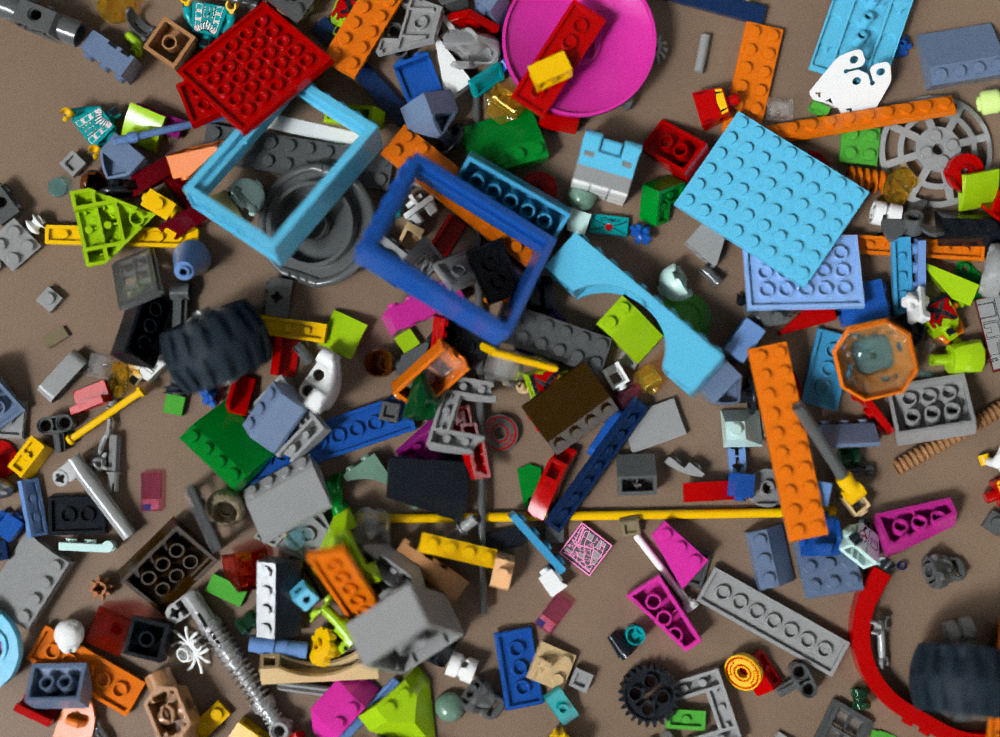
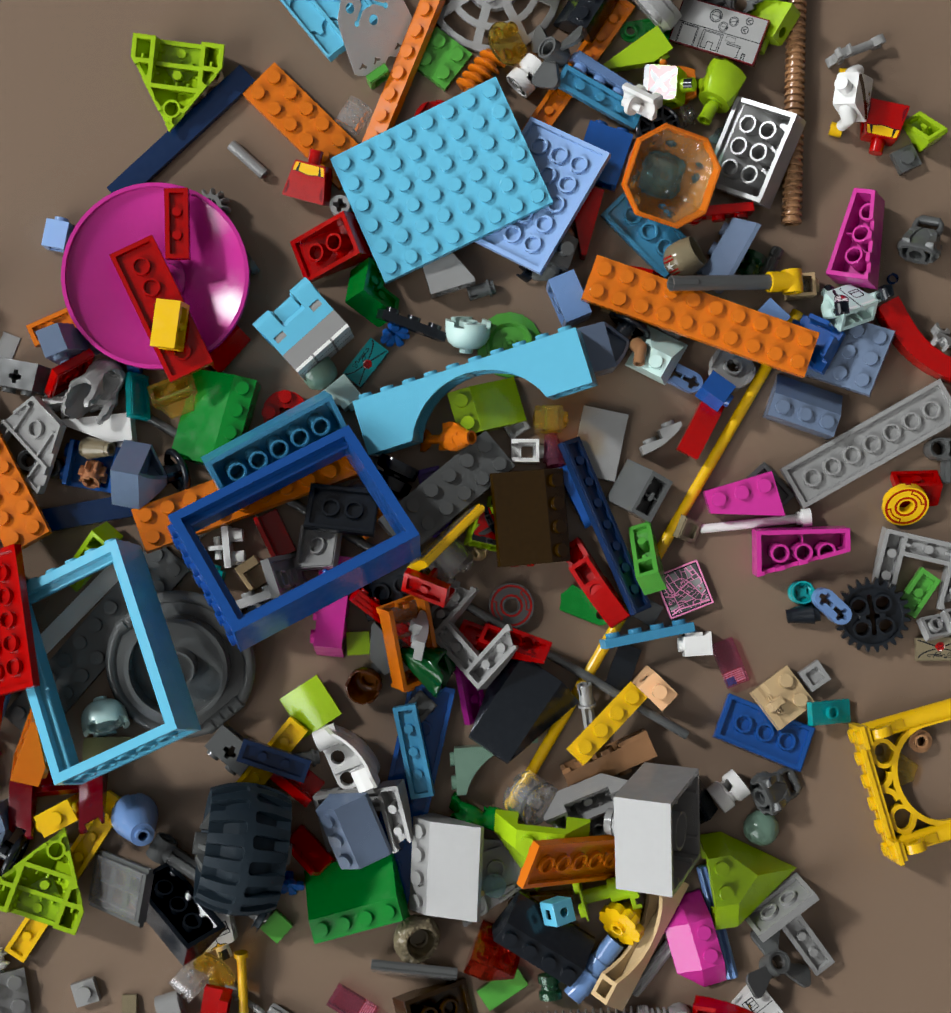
camera: 60 degrees left, 0 degrees up
(289, 331) = (274, 760): none -> dark blue plate
(355, 425) = (413, 750): none -> dark azure plate
(413, 82) = (93, 474): none -> nougat gear
(432, 73) = (96, 448): none -> dark tan cone
(441, 378) = (419, 628): none -> light grey slope
(476, 364) = (427, 587): none -> red panel
(591, 508) = (646, 558): none -> bright green slope
(592, 318) = (452, 438): none -> orange animal
(624, 32) = (177, 223): none -> red plate
(642, 662) = (835, 602): none -> medium blue beam
(656, 240) = (412, 323): none -> black plate
(710, 134) = (335, 203): none -> light grey bush
(738, 412) = (639, 348): none -> medium nougat arm
(820, 404) = (684, 257): none -> dark tan helmet

